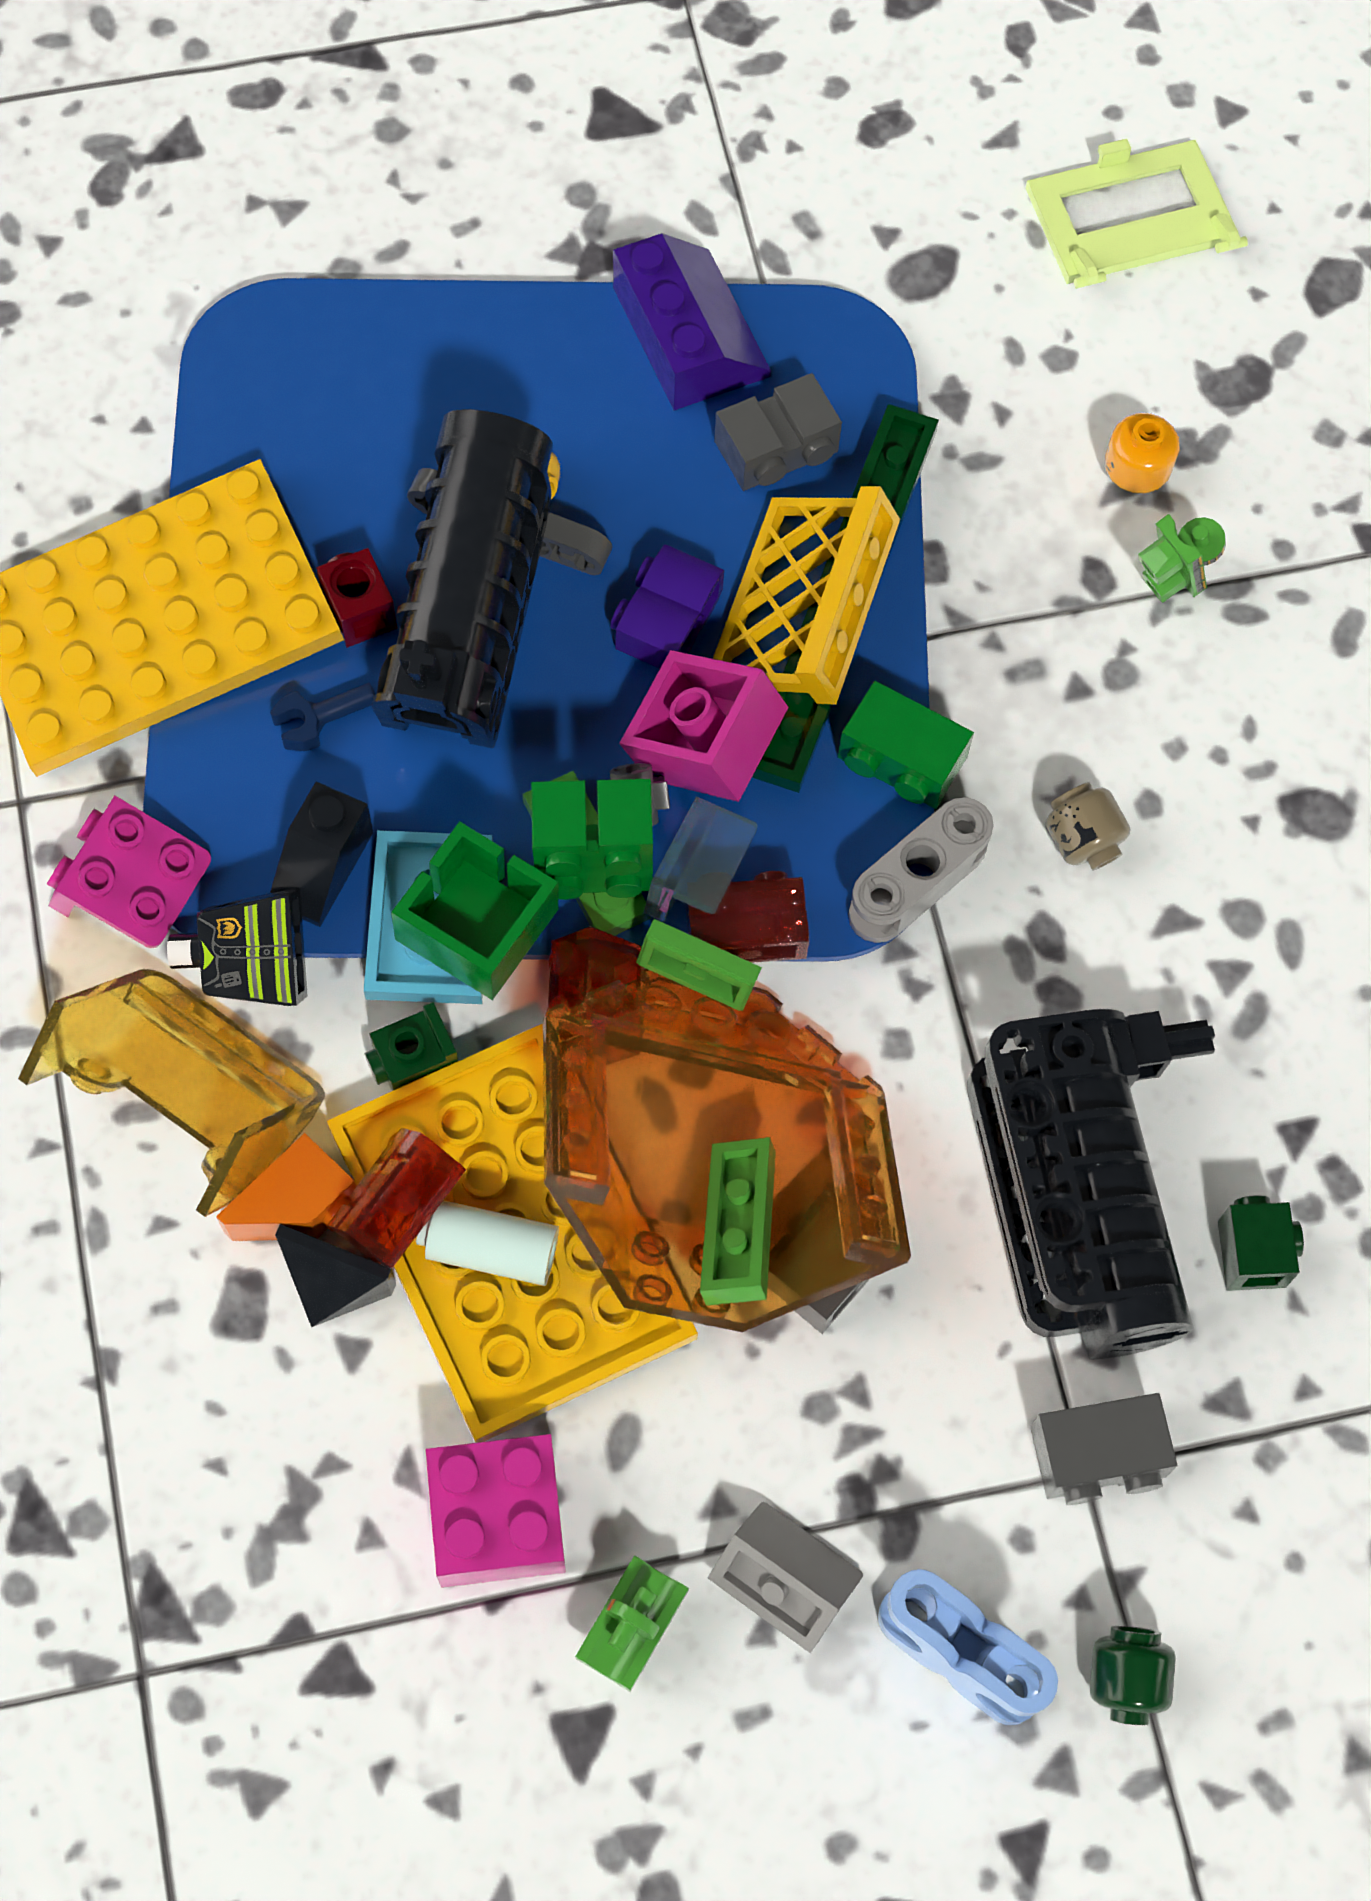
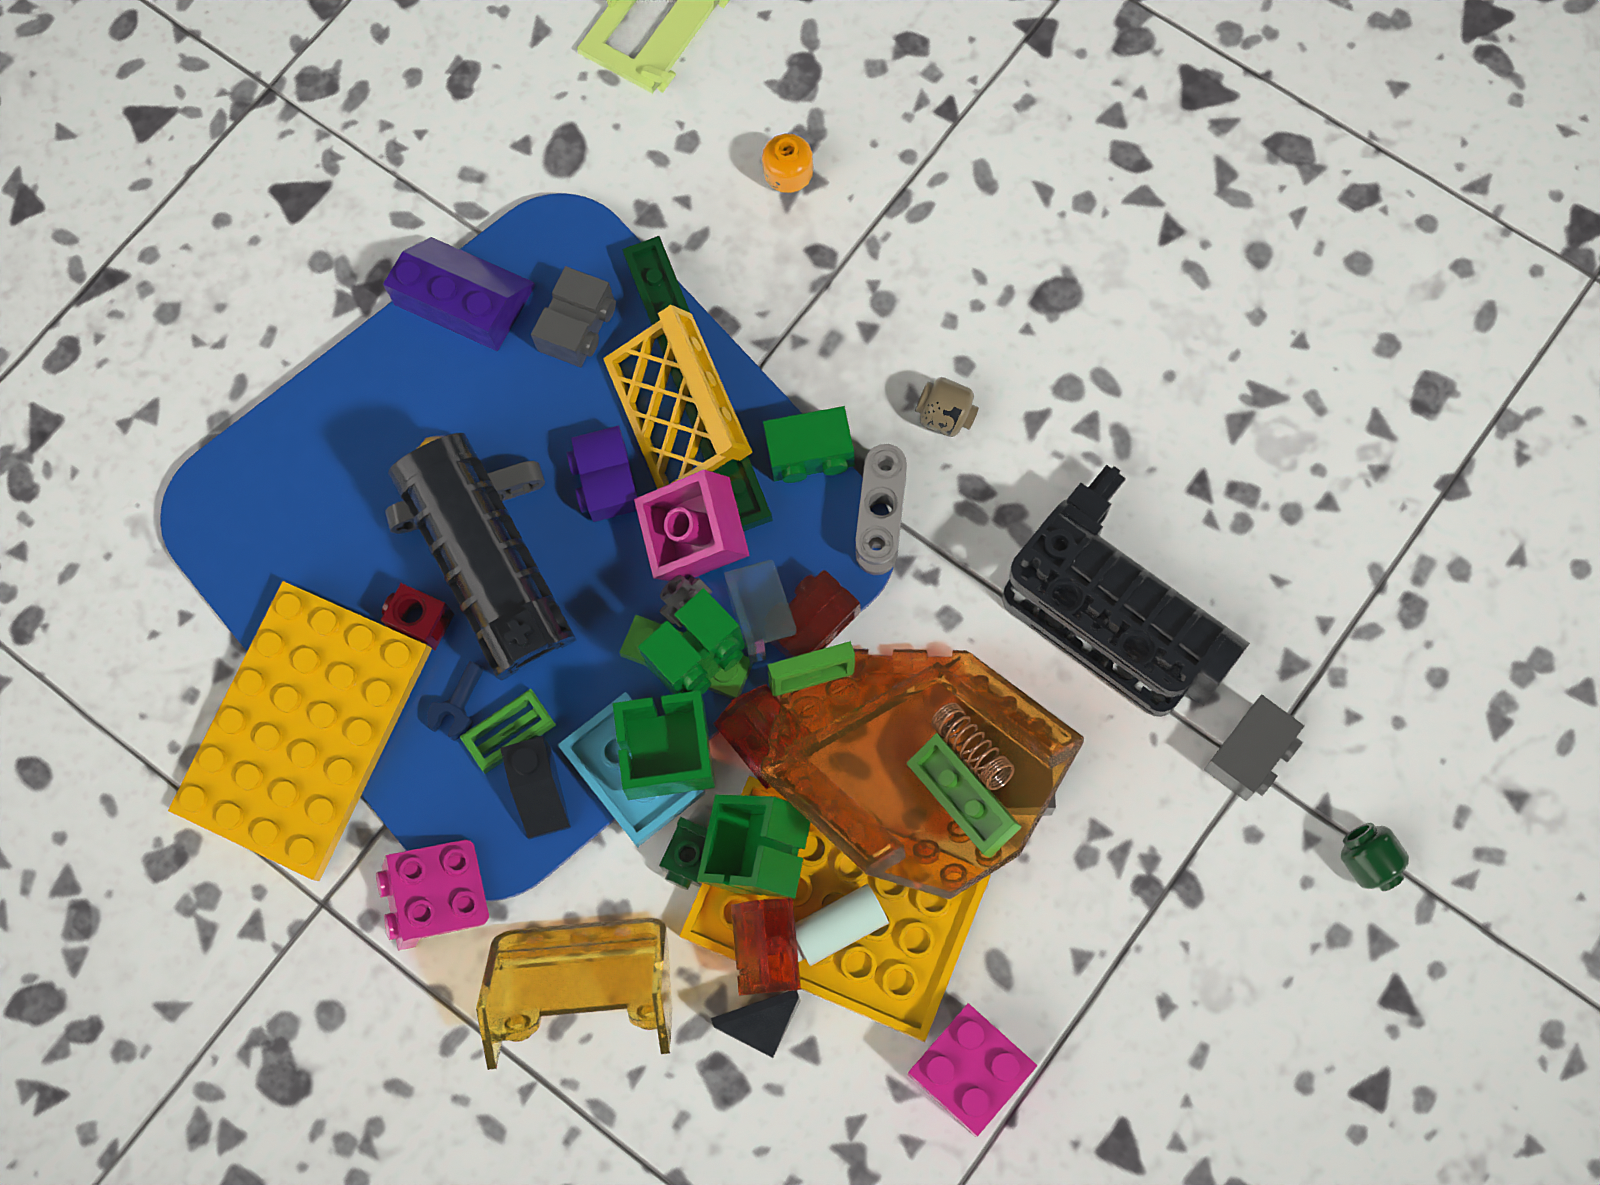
camera: 30 degrees left, 5 degrees up
(248, 949) = (544, 877): black torso -> none
(296, 1190) = (700, 993): orange slope -> none
(352, 761) = (493, 760): none -> bright green tile
(474, 1086) = (754, 846): none -> green piece
(632, 1623) = (1099, 1065): bright green hips -> none
(785, 1576) = (1153, 965): light grey panel -> none
(800, 1213) = (989, 768): none -> medium nougat piece
(967, 1648) = (1285, 921): light blue piece -> none
(1180, 559) = (864, 206): bright green hips -> none
(1259, 1244) = (1237, 565): dark green brick -> none

